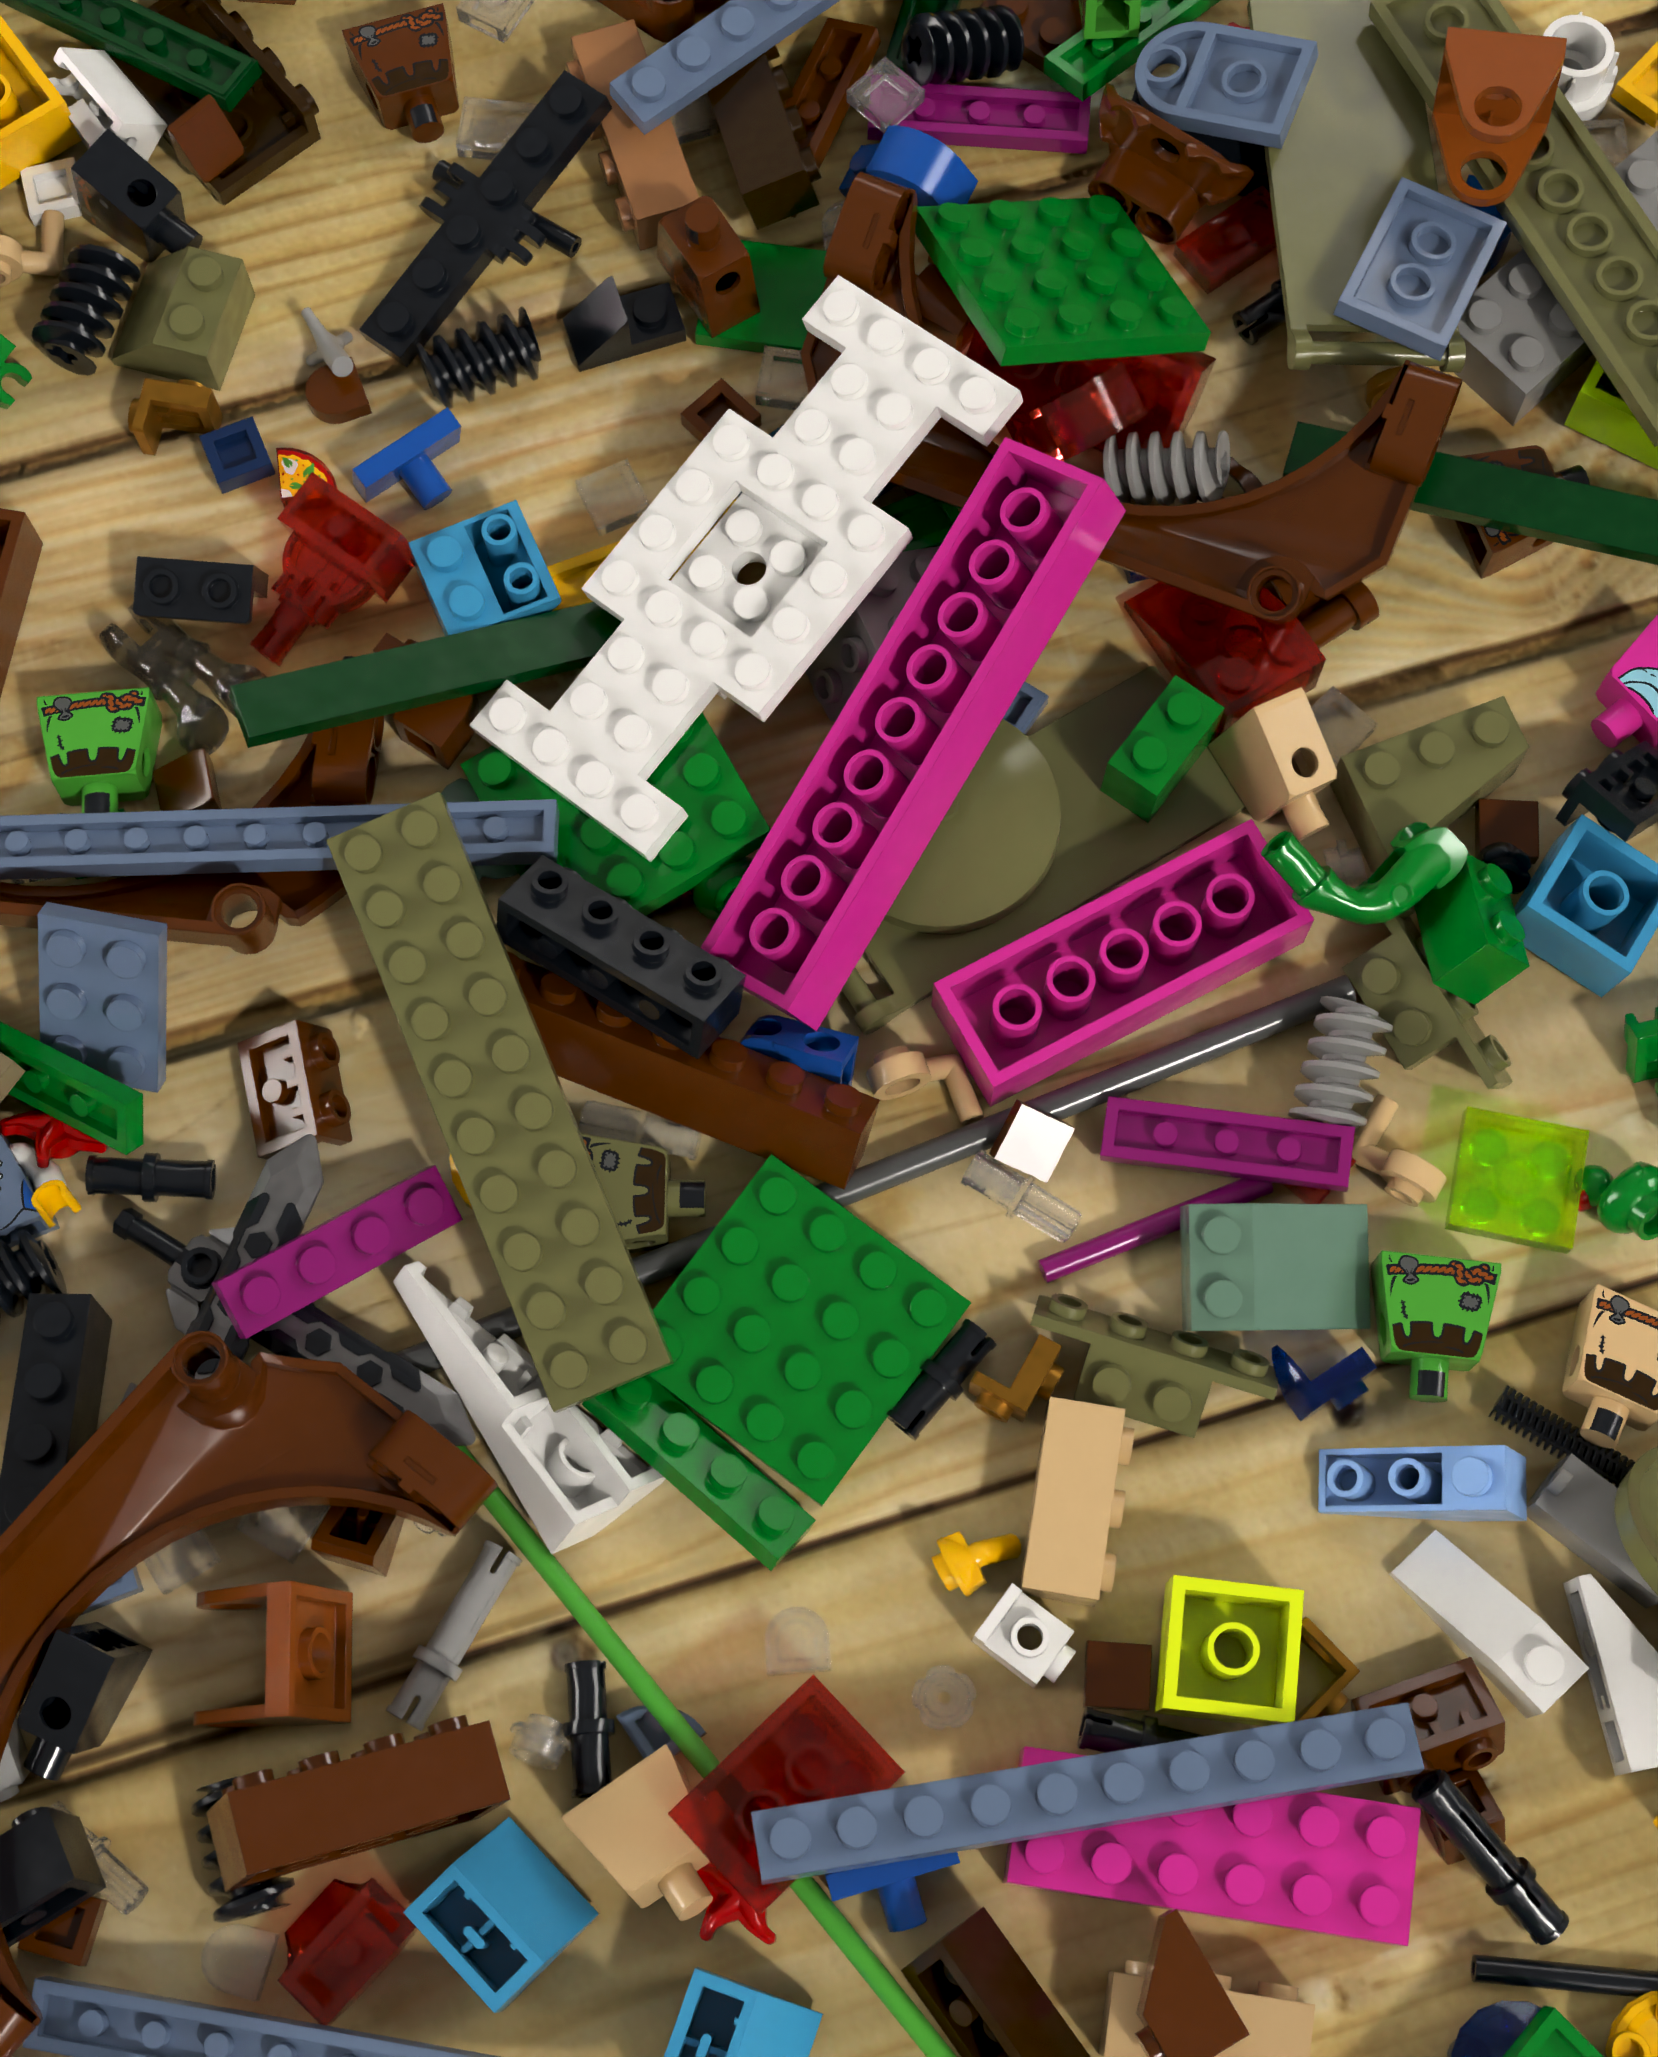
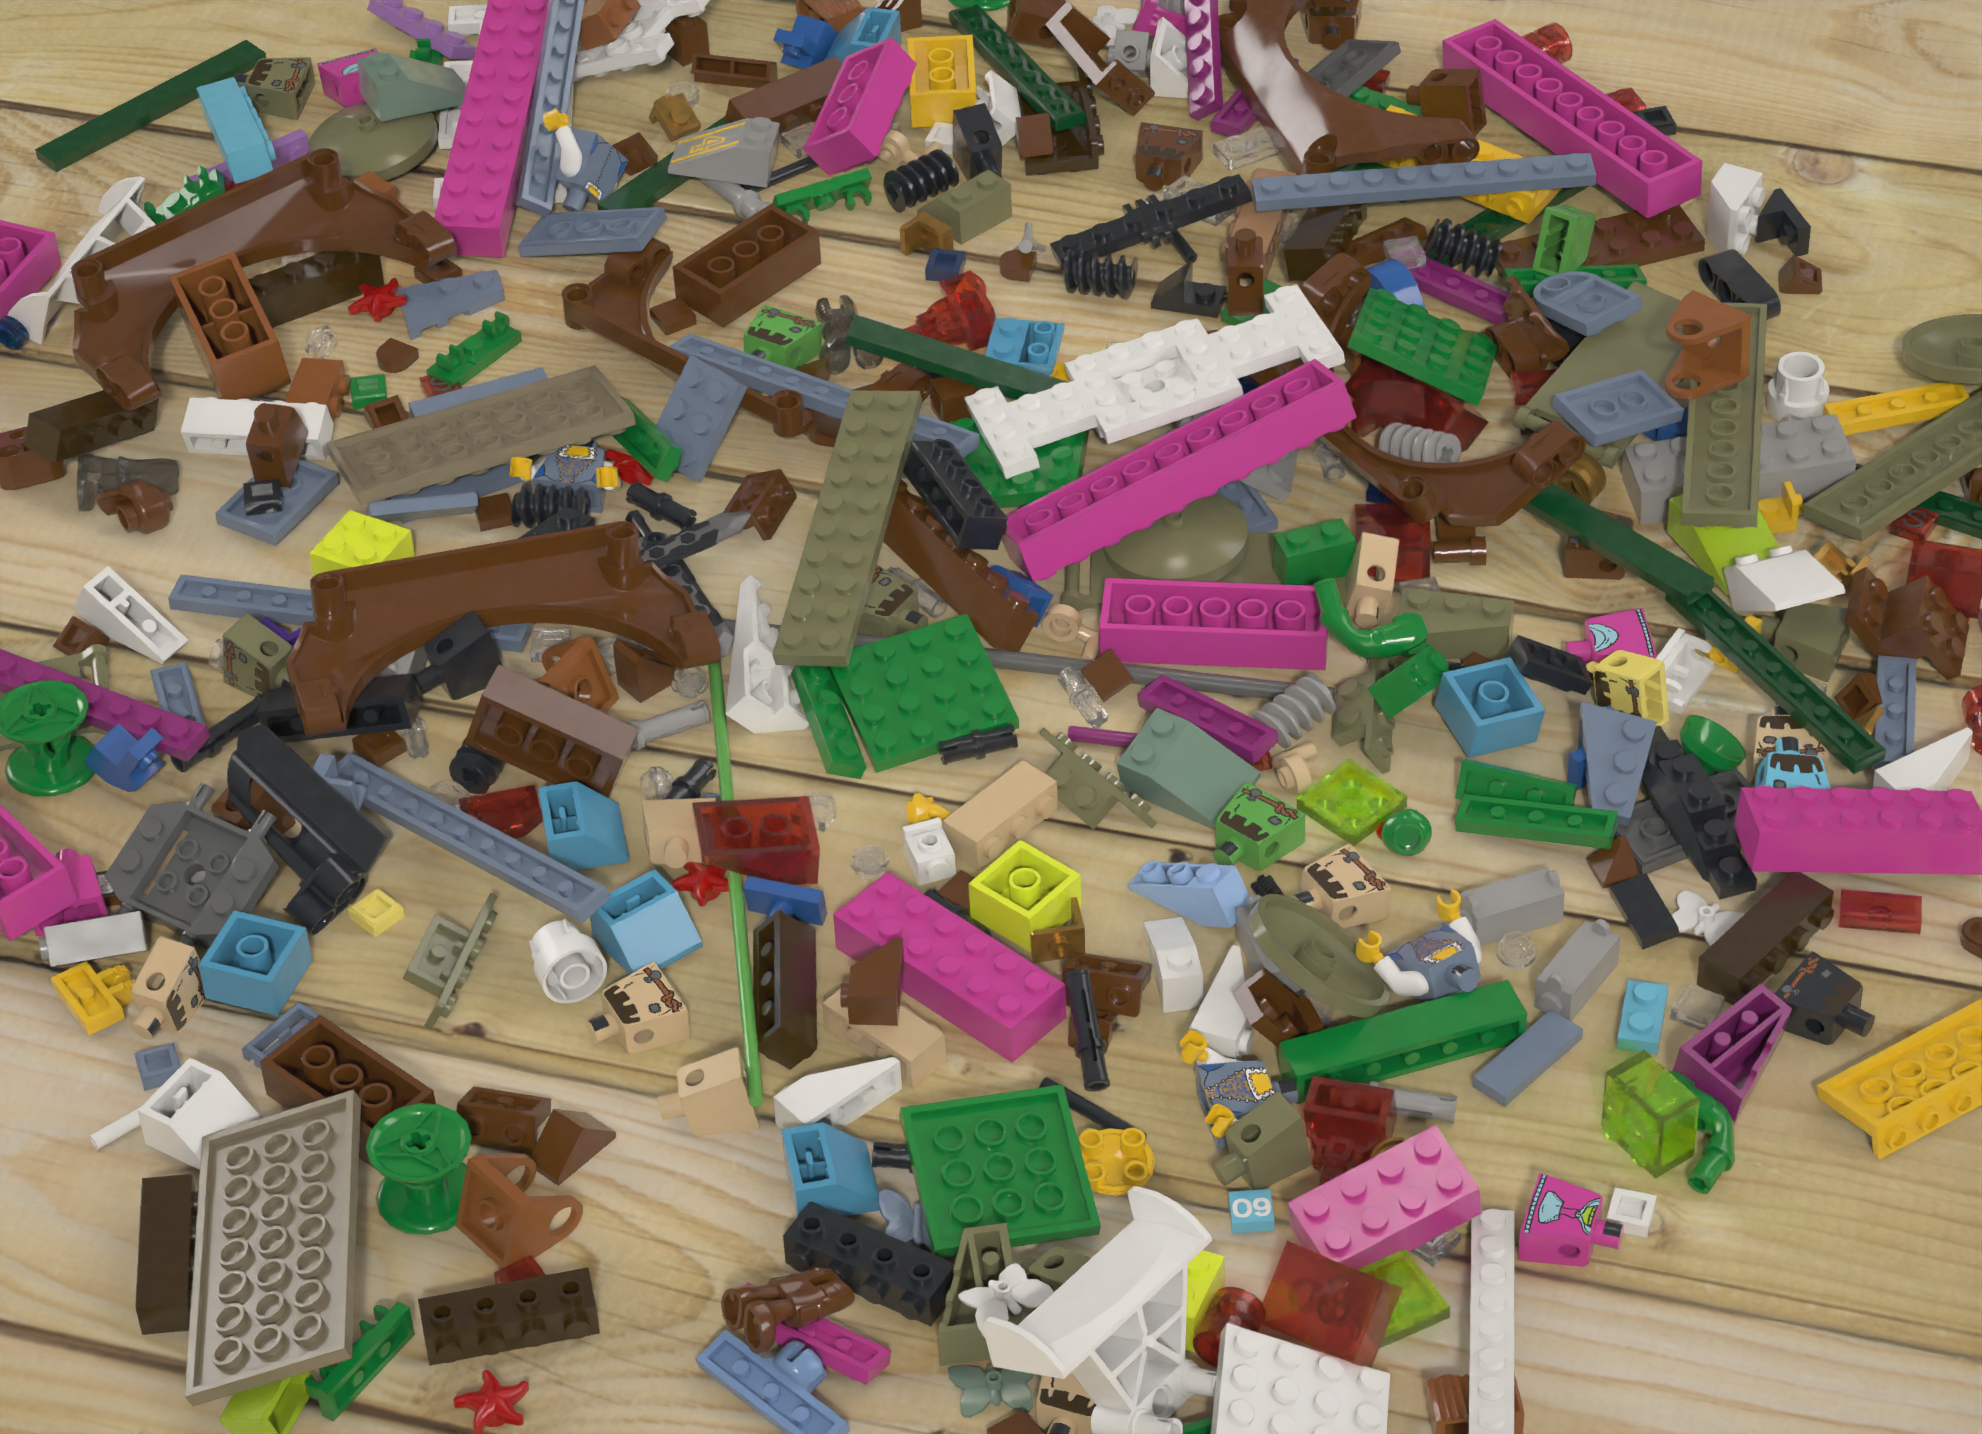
camera: 35 degrees right, 30 degrees down
(197, 590) = (880, 299): black bracket -> none
(336, 1252) = (723, 559): magenta plate -> none
(410, 460) = (1029, 297): blue tile -> none
(1036, 1378) = (1002, 759): pearl gold bracket -> none
(1085, 1793) = (903, 889): sand blue plate -> none
(1338, 1385) = (1175, 830): clear blue plate -> none

